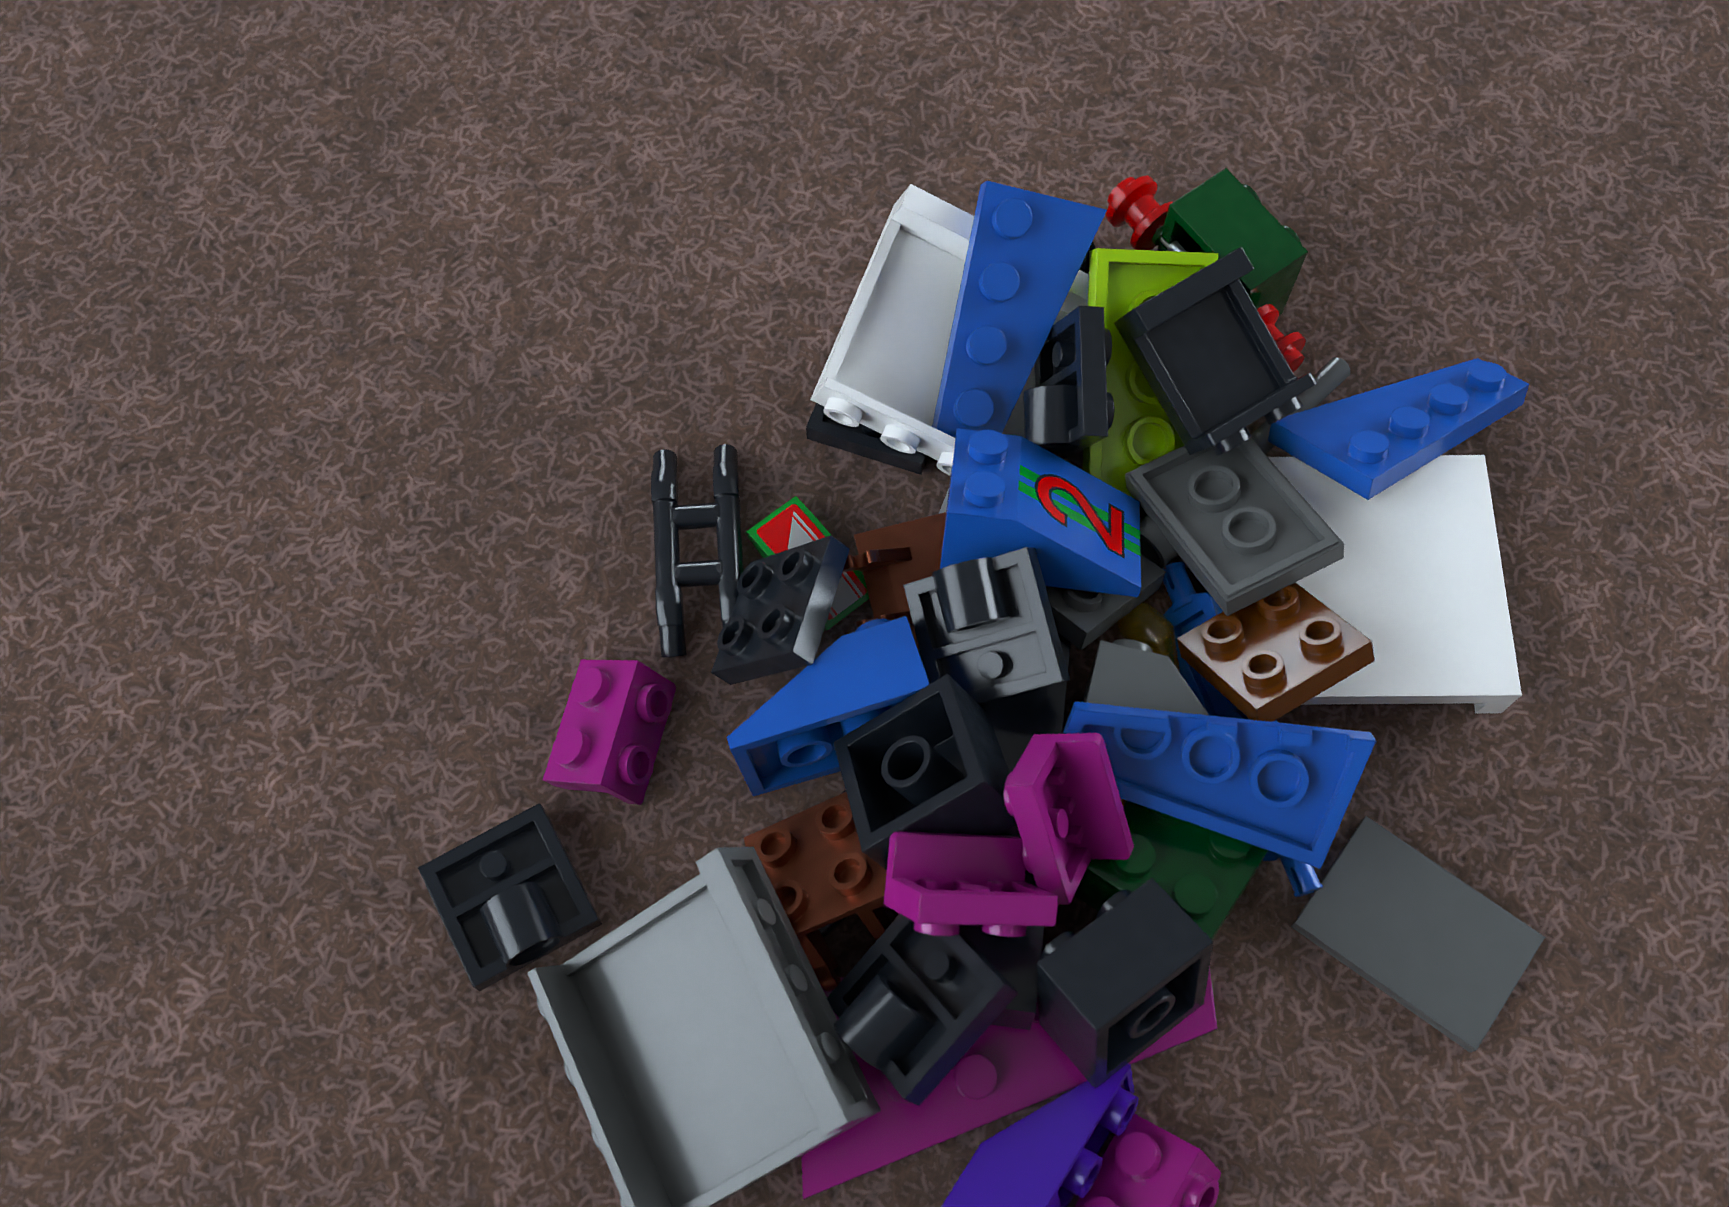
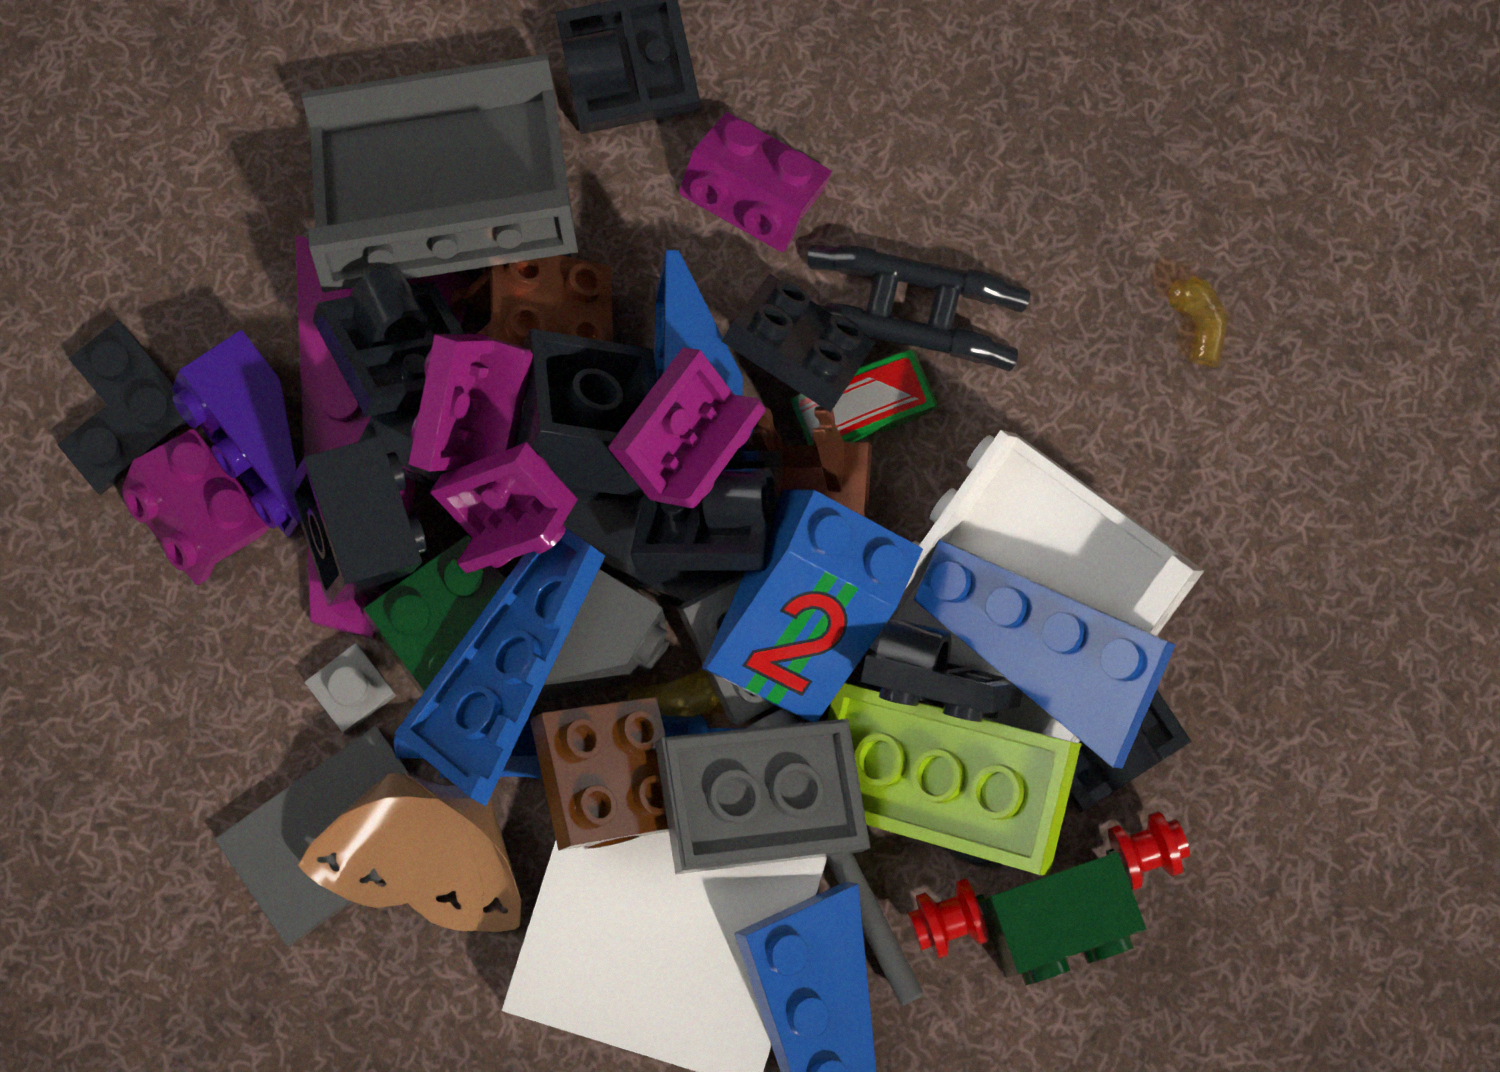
camera: 105 degrees right, 10 degrees up
(641, 301) = (1207, 313): none -> clear yellow arm
(931, 644) = (685, 431): none -> magenta bracket
(1212, 357) = (924, 828): black panel -> none
(1266, 965) = (350, 688): none -> light grey plate
(1398, 839) = (423, 846): none -> medium nougat piece

